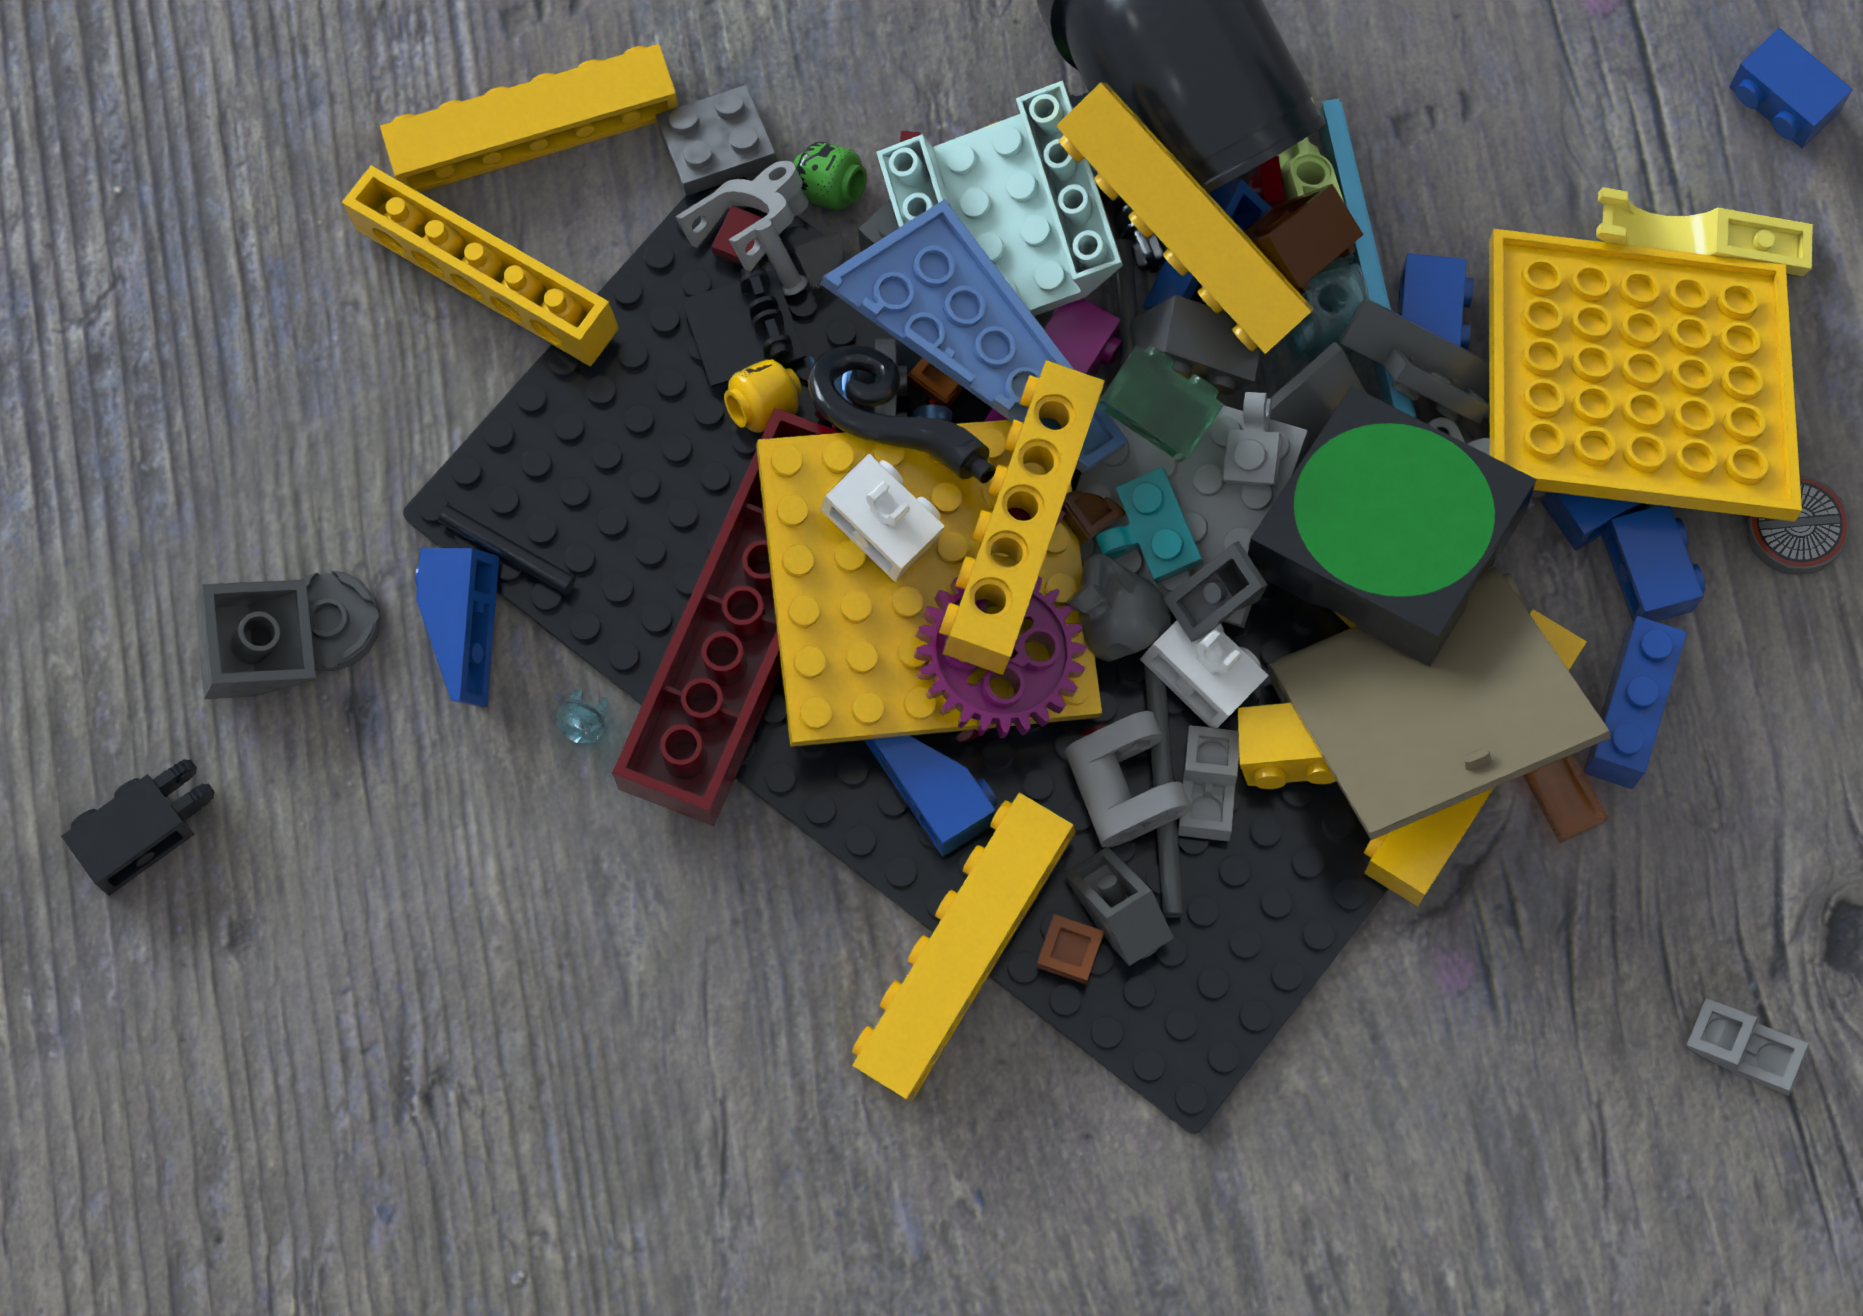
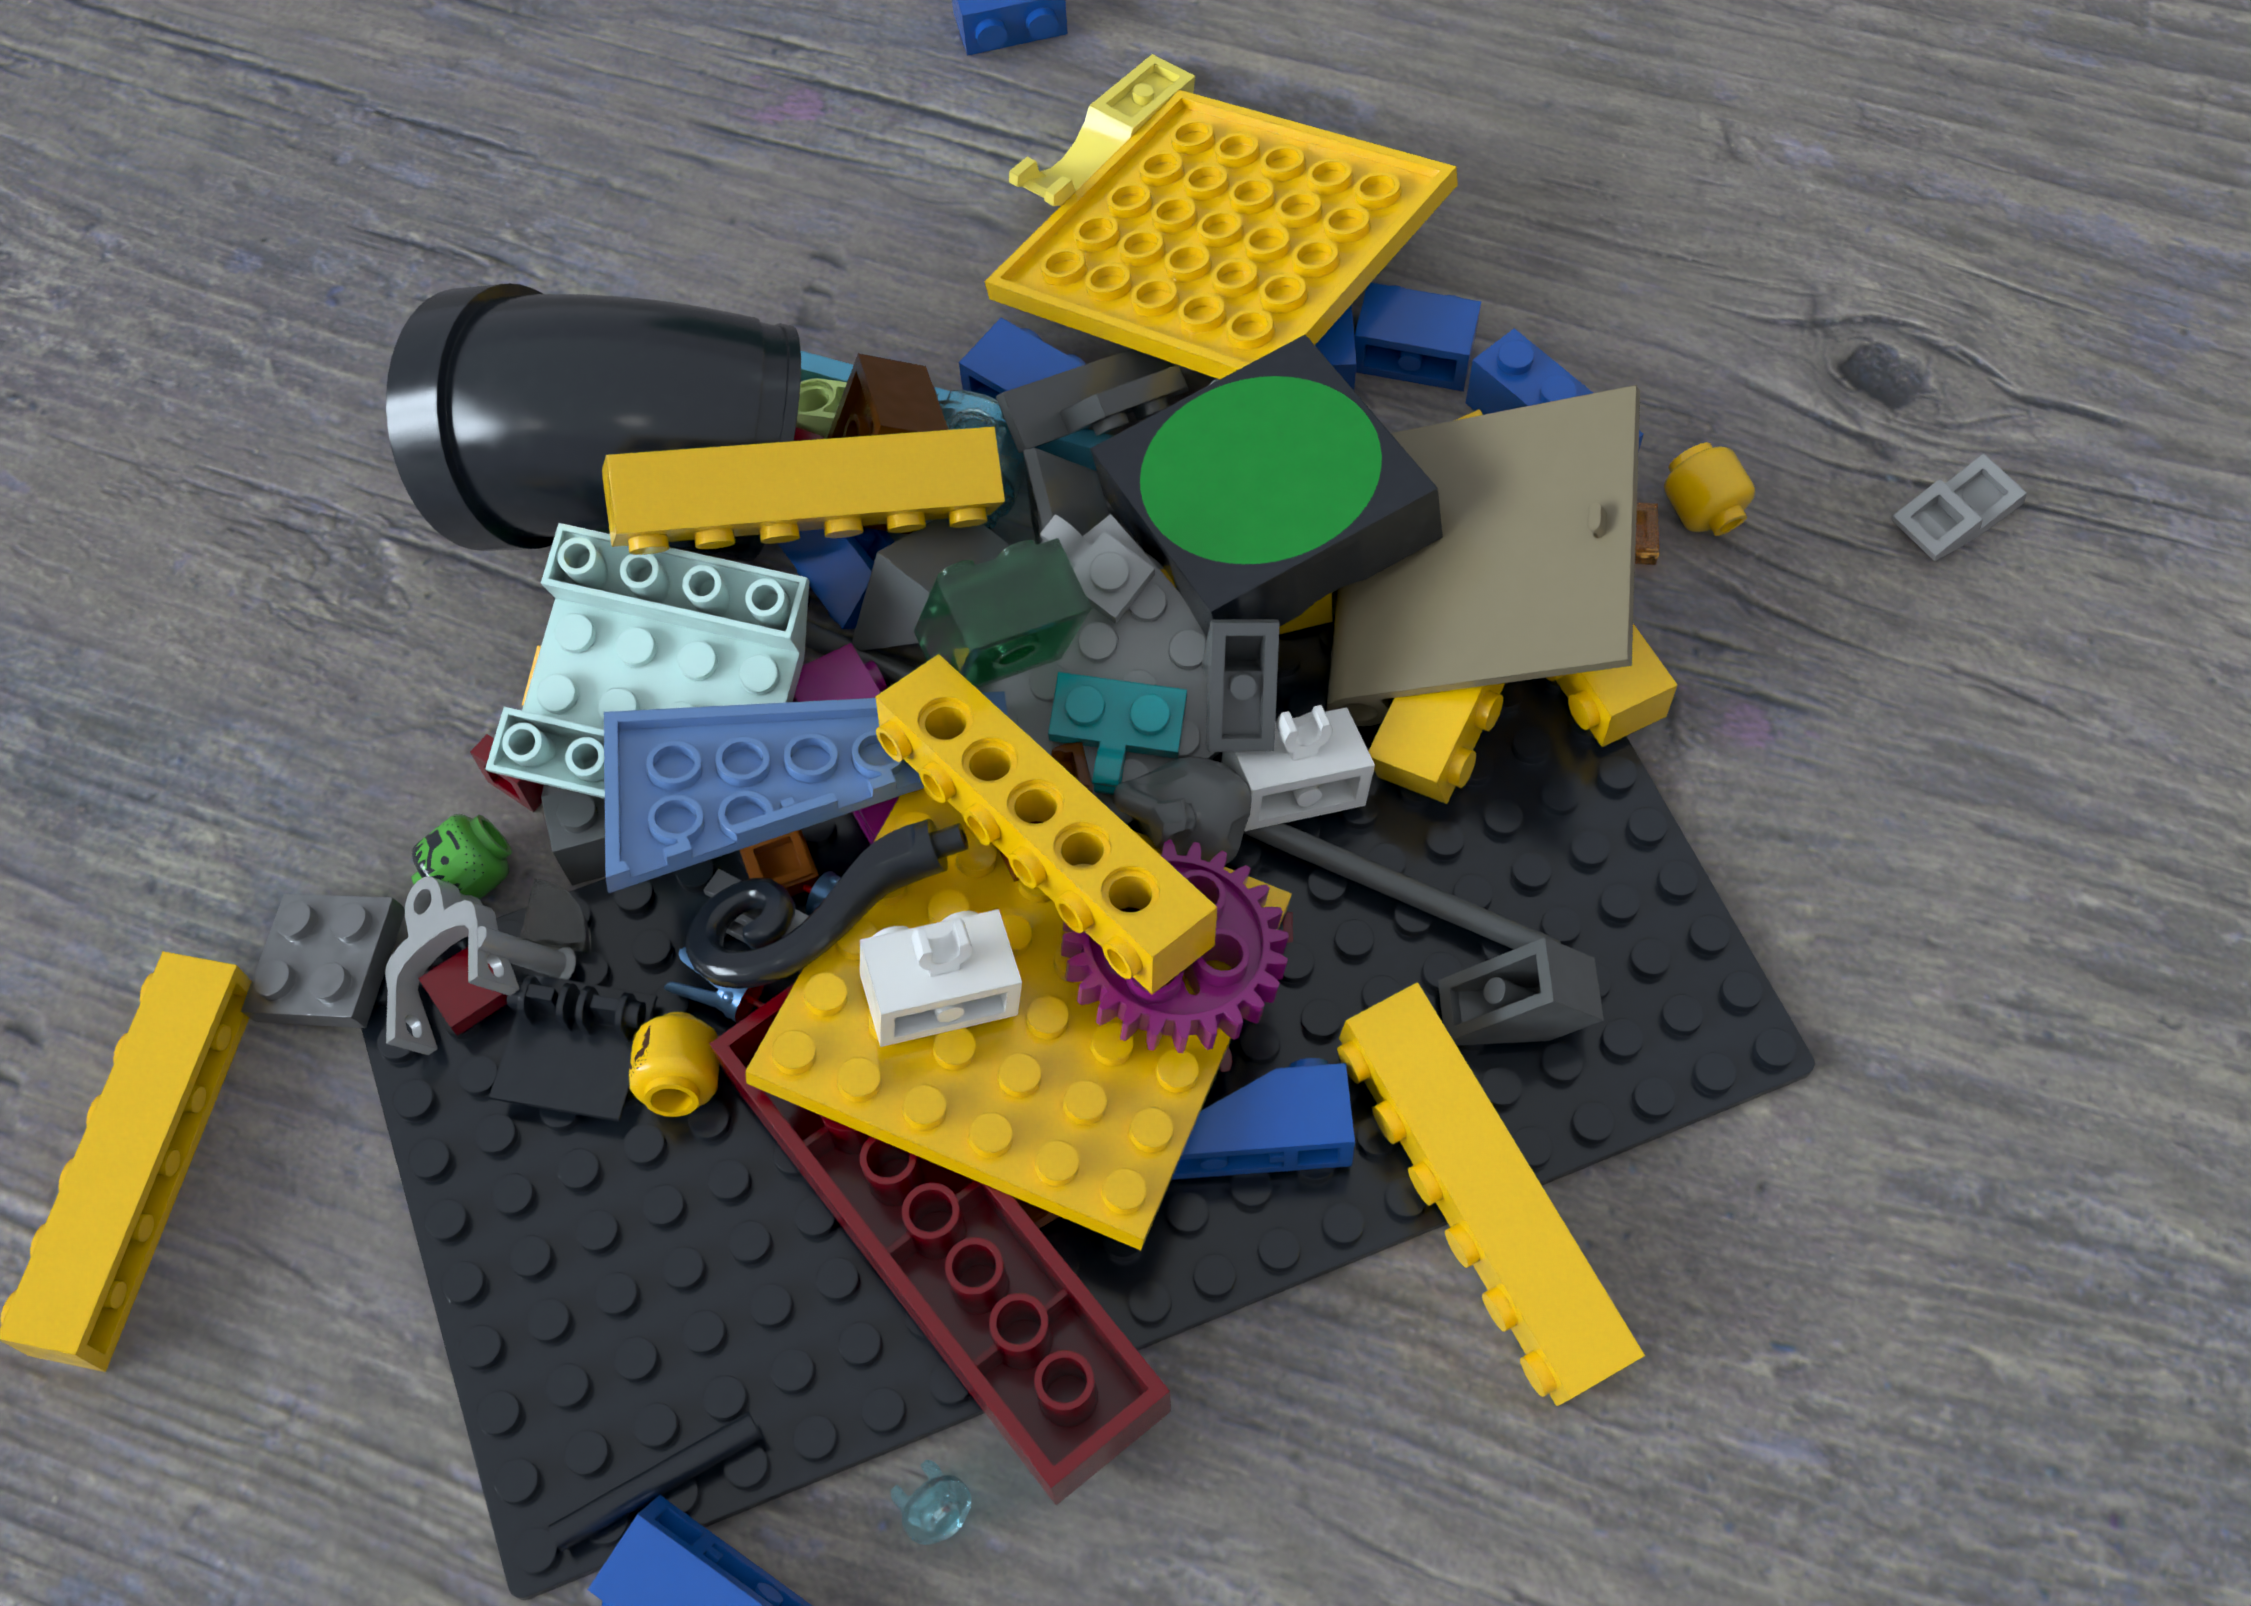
camera: 60 degrees left, 10 degrees down
(481, 265) = (266, 1311): yellow brick -> none
(1070, 949) = (1545, 1078): dark orange plate -> none
(1104, 788) = (1379, 941): light grey connector -> none
(1210, 782) = (1422, 842): light grey slope -> none
(1640, 848) = (1709, 489): none -> yellow head
(1809, 541) = (1459, 223): tile -> none

